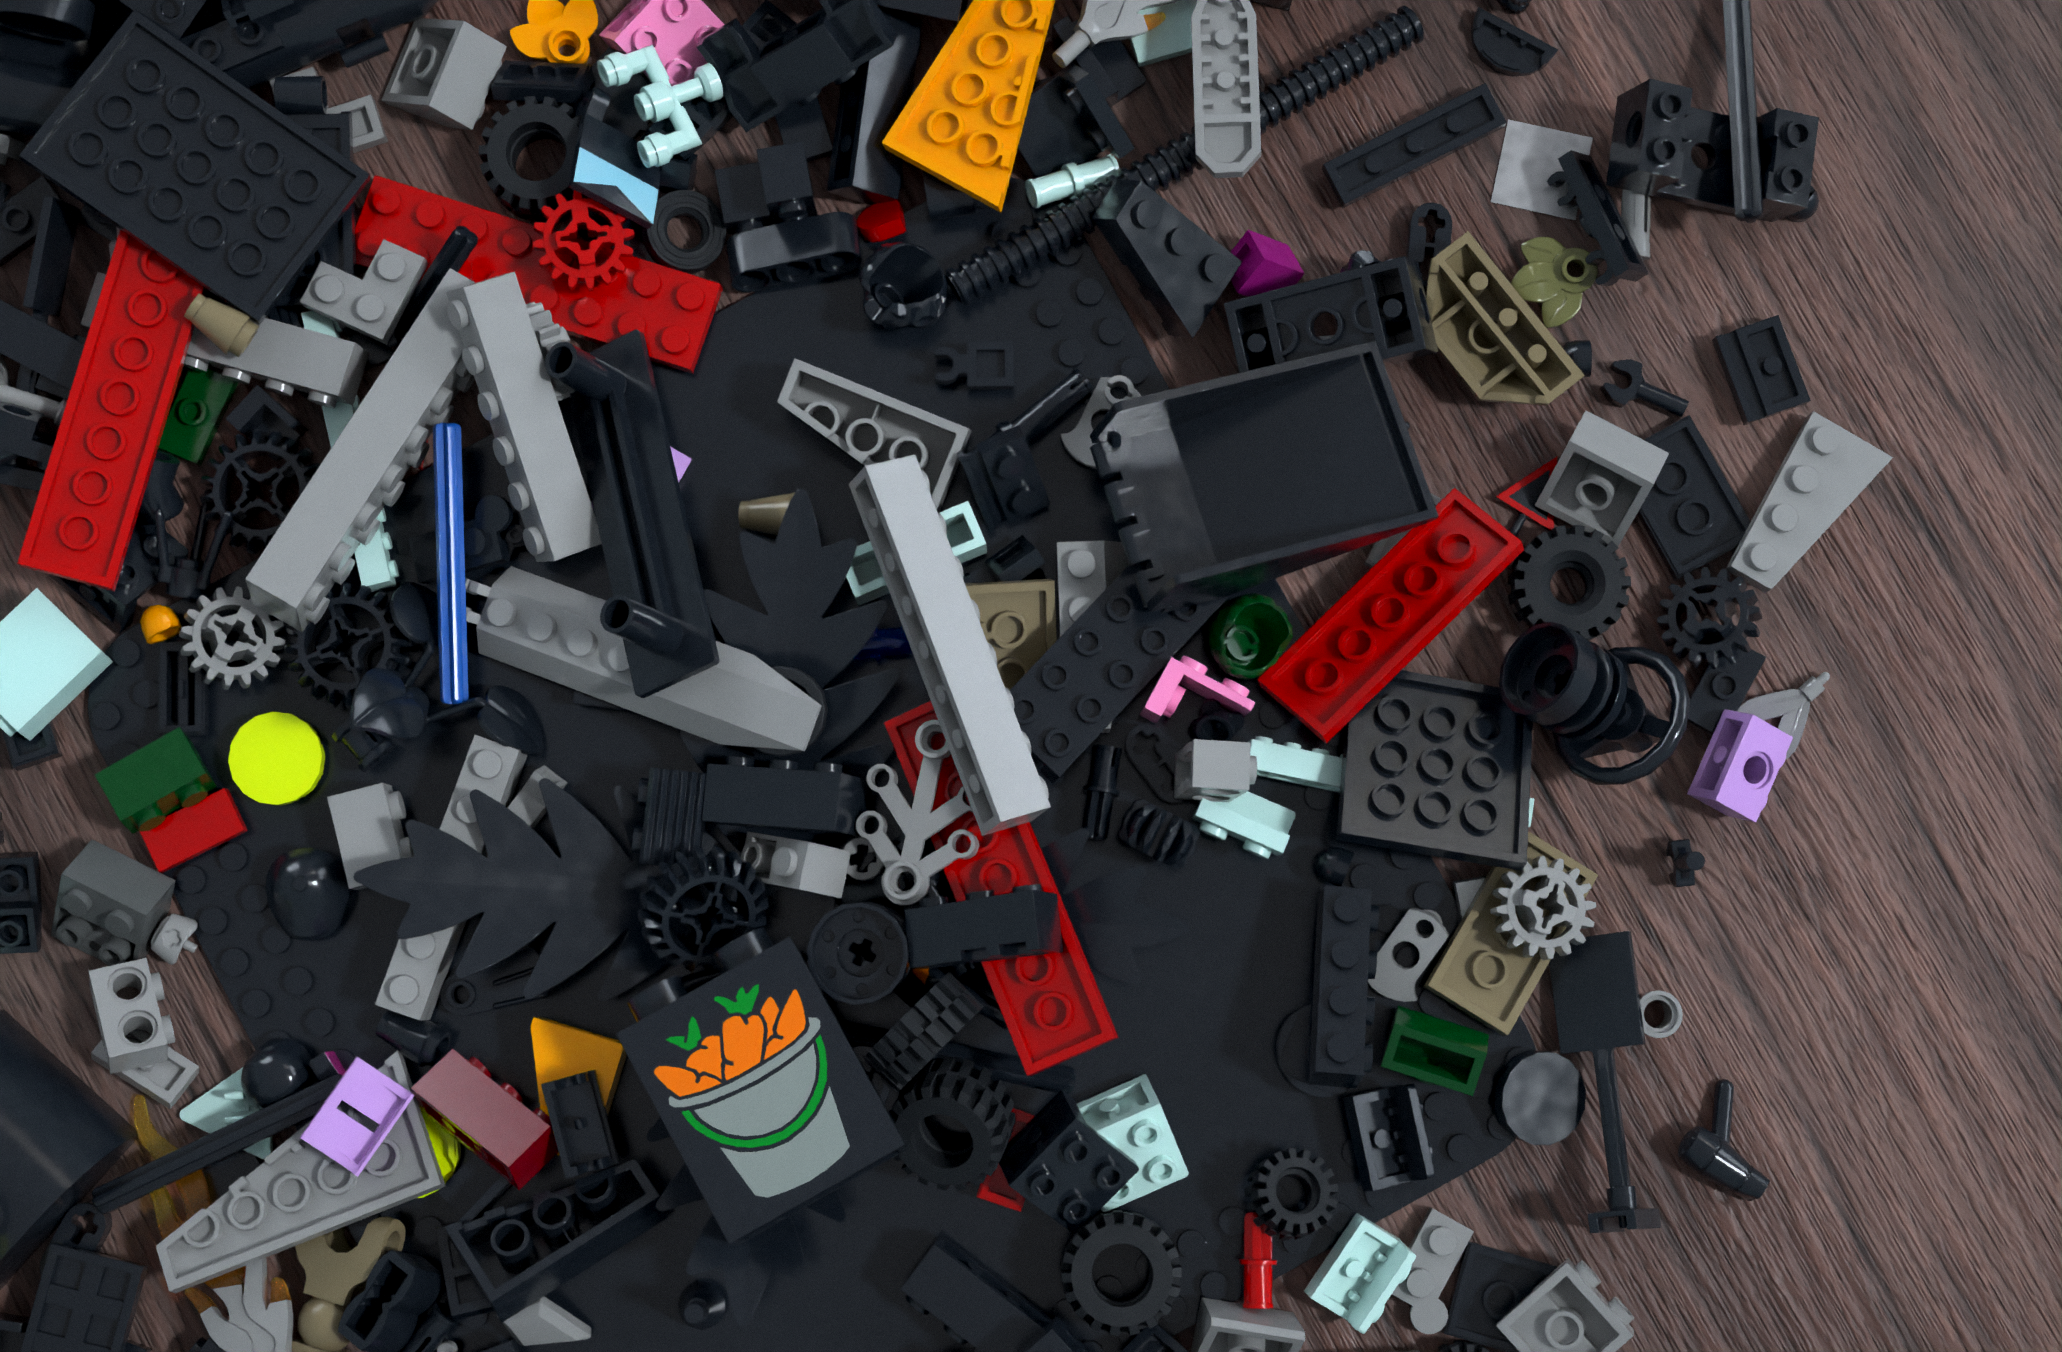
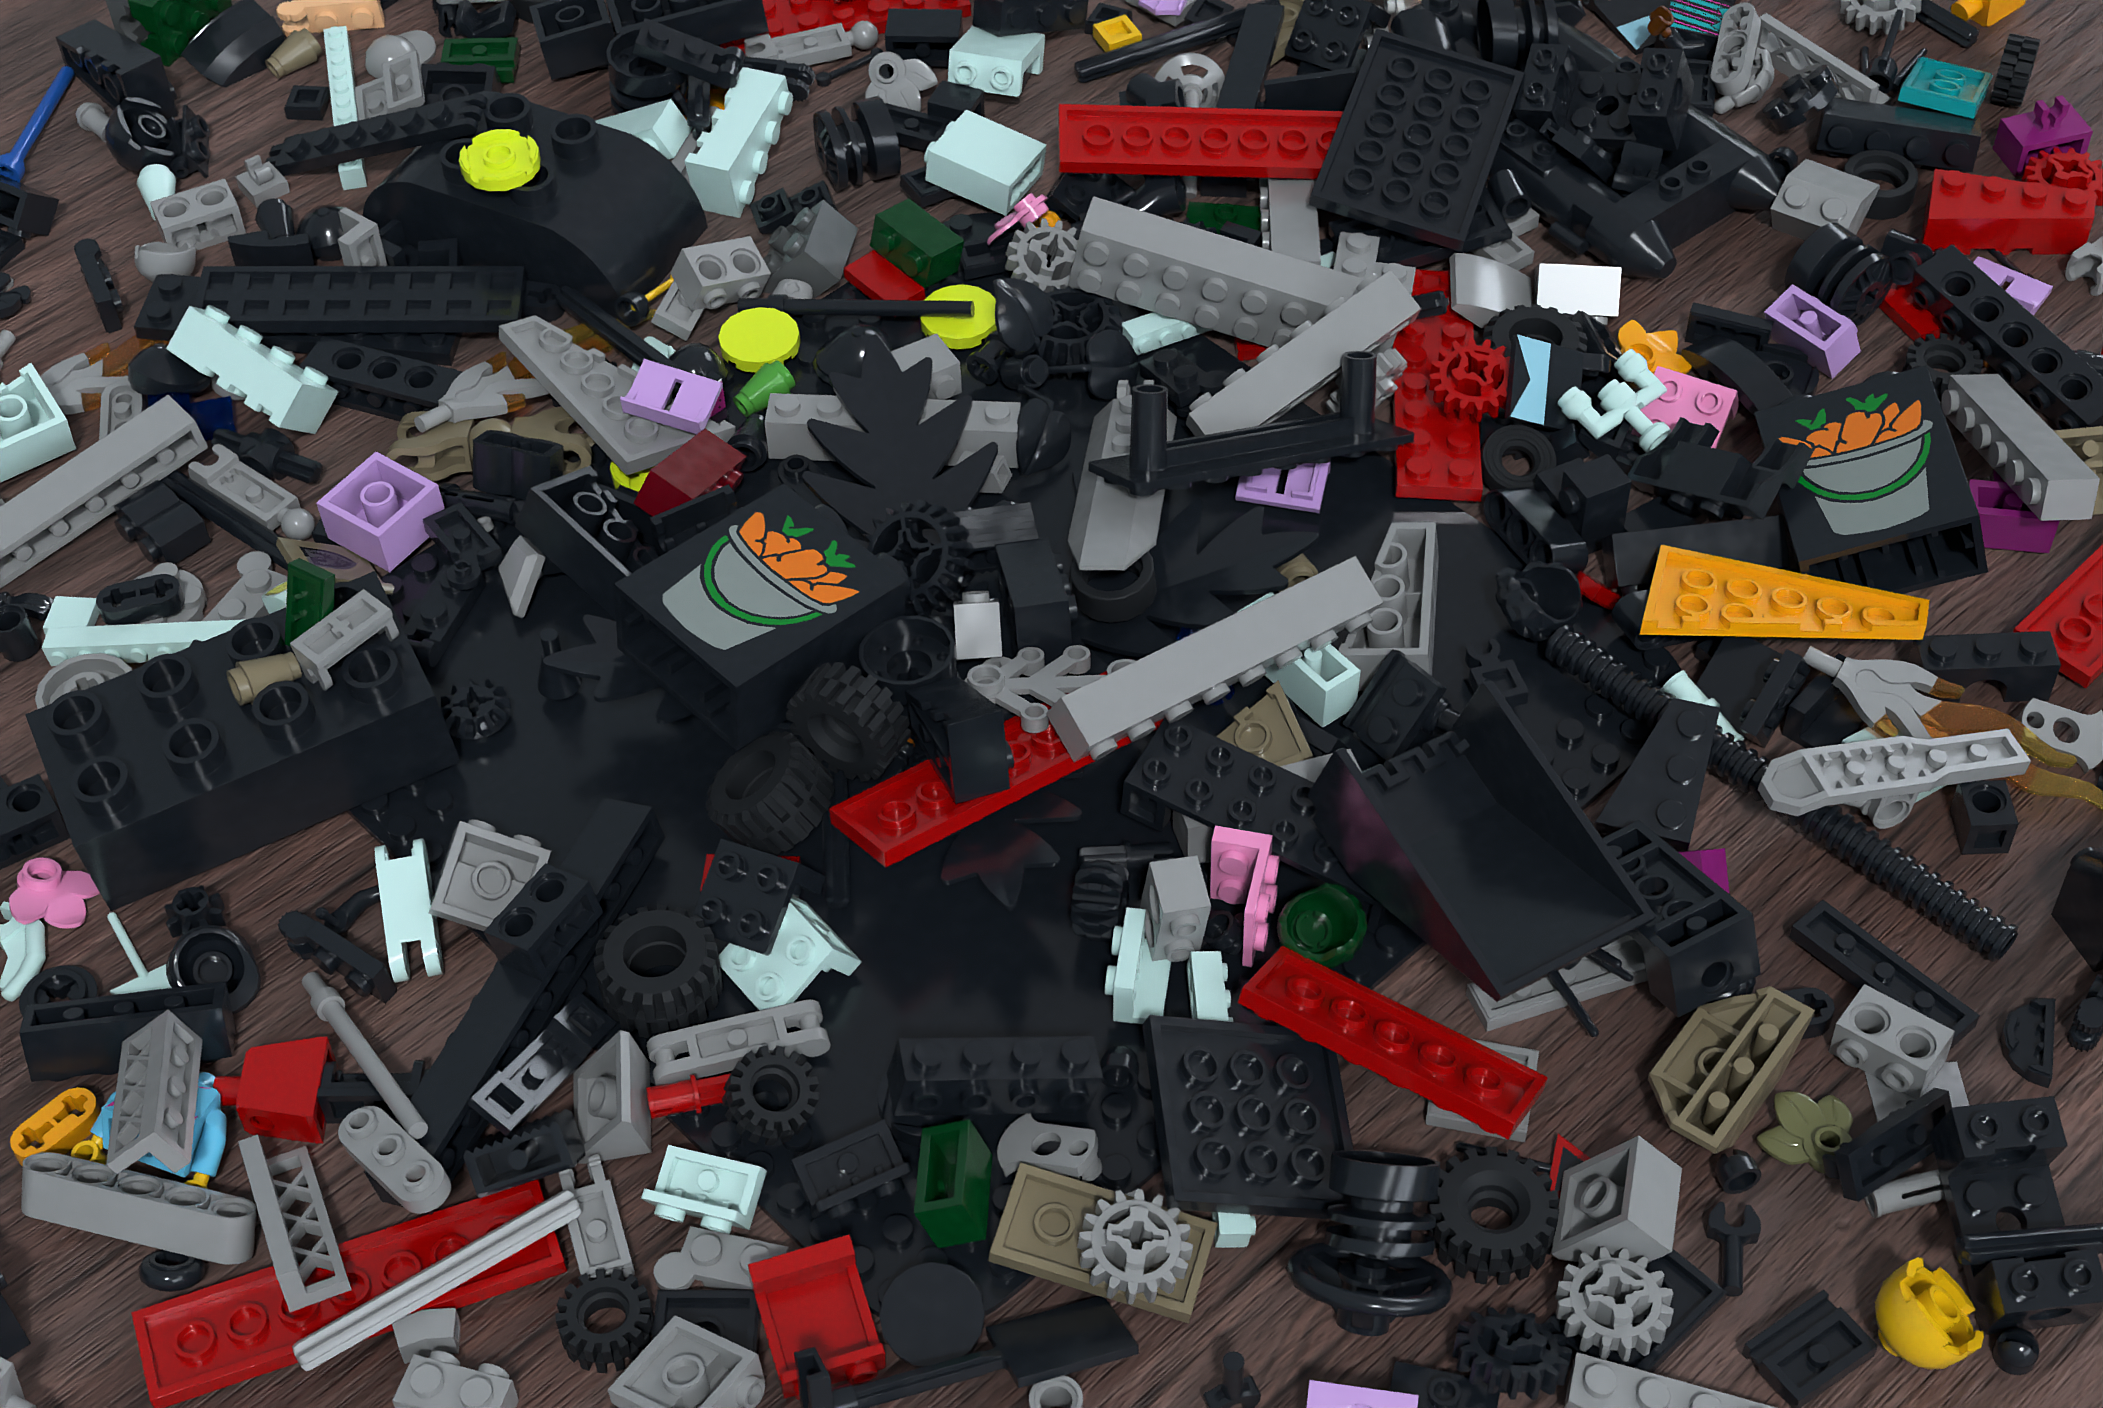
camera: 80 degrees right, 35 degrees down
(142, 1125) = (639, 309): none -> black hinge
(154, 651) = (1026, 210): none -> bright pink plate
(195, 956) = (859, 307): none -> black bar
(222, 324) = (1298, 181): dark tan cone -> none
(243, 992) = (758, 338): none -> neon yellow tile
(334, 1004) = (767, 380): none -> bright green cone
(424, 166) = (1486, 287): none -> light grey slope
(450, 563) = (1161, 358): blue axle -> none
(1213, 1211) = (722, 1043): none -> light grey plate
(1483, 164) = (1891, 1042): none -> light grey brick
(1522, 1199) = (820, 1303): none -> red panel
(1713, 519) = (1611, 1305): none -> light grey gear
(1773, 265) = (1925, 1317): none -> yellow cylinder

